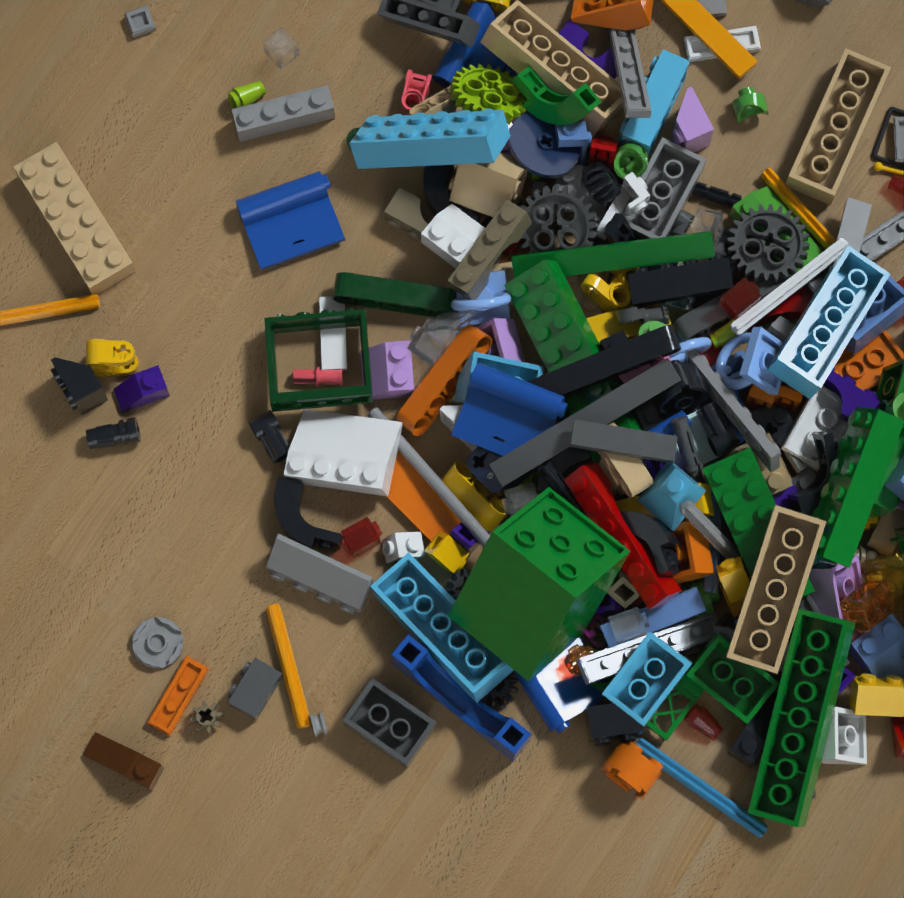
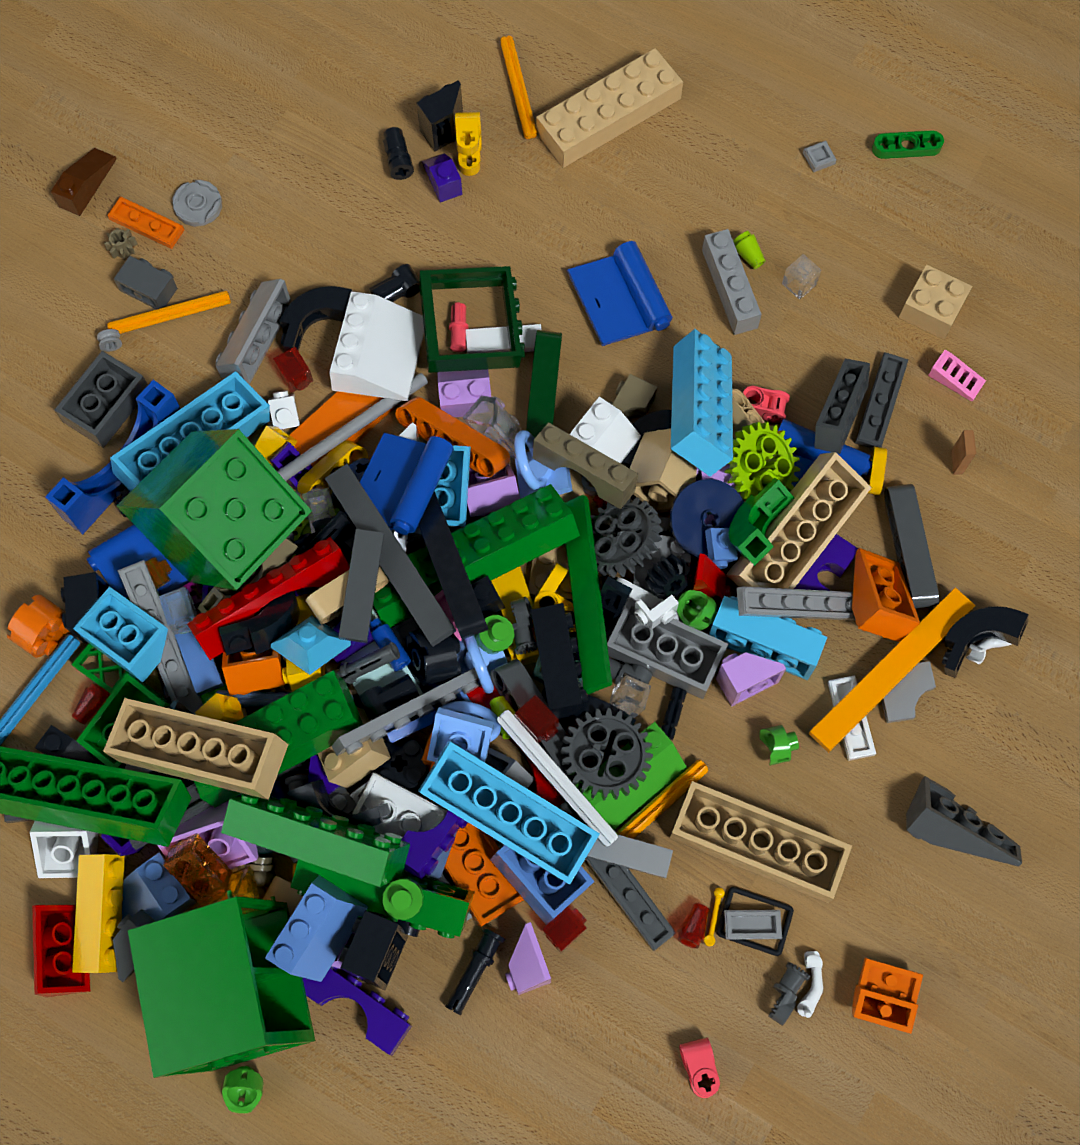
camera: 90 degrees right, 5 degrees down
(708, 530) = (271, 675): light grey axle -> none

